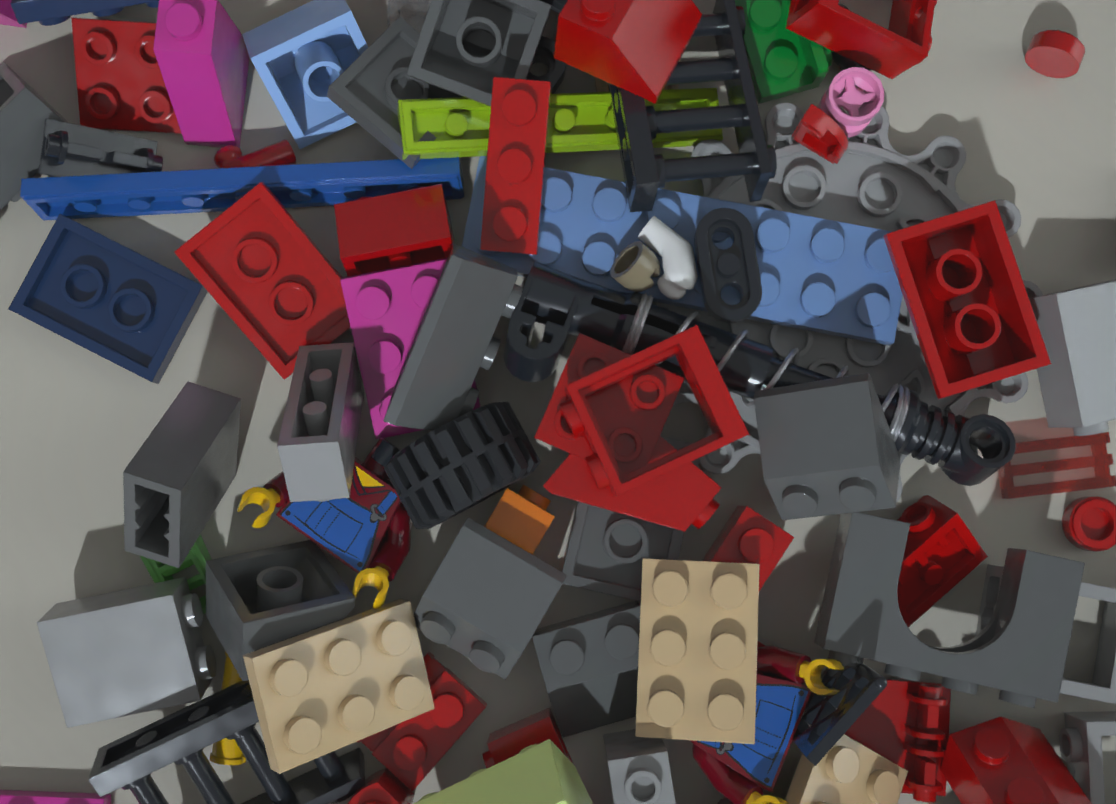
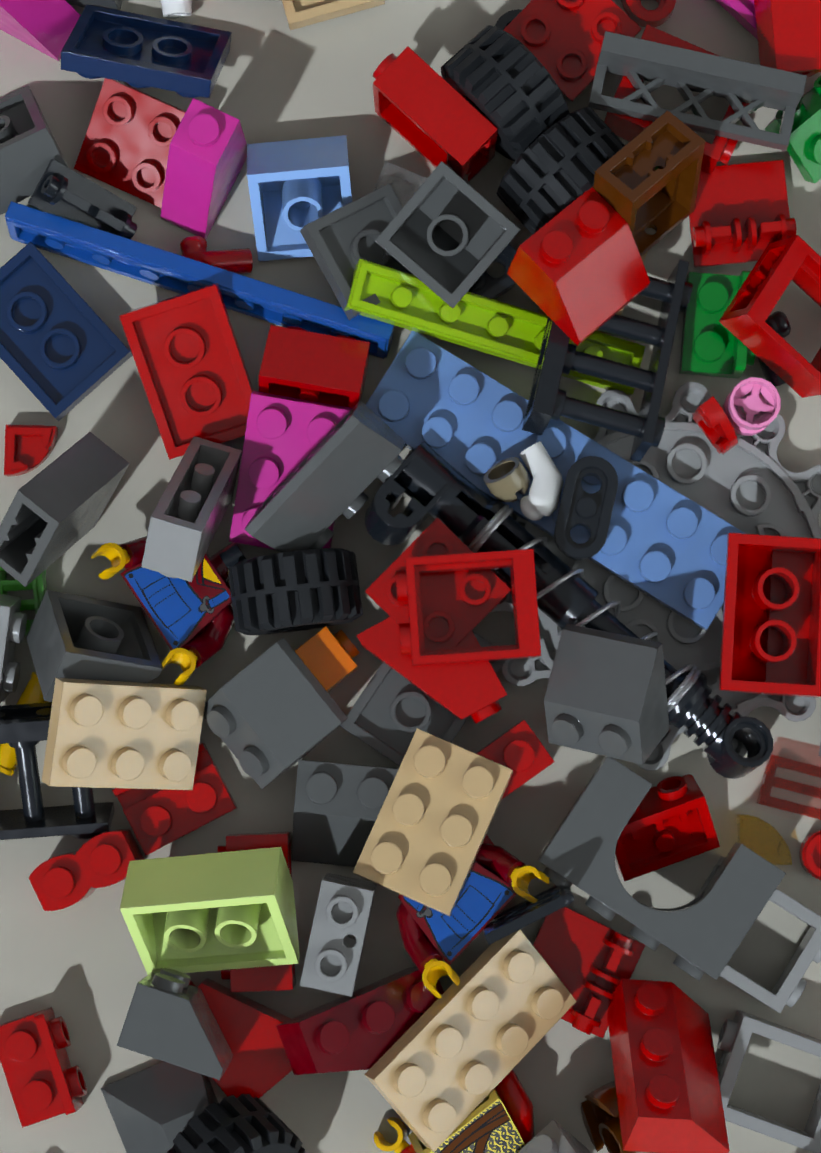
camera: 25 degrees right, 0 degrees up
(135, 420) = (27, 447): none -> red tile
(515, 165) = (437, 354): red plate -> none
(1023, 532) = (763, 839): none -> clear yellow tile

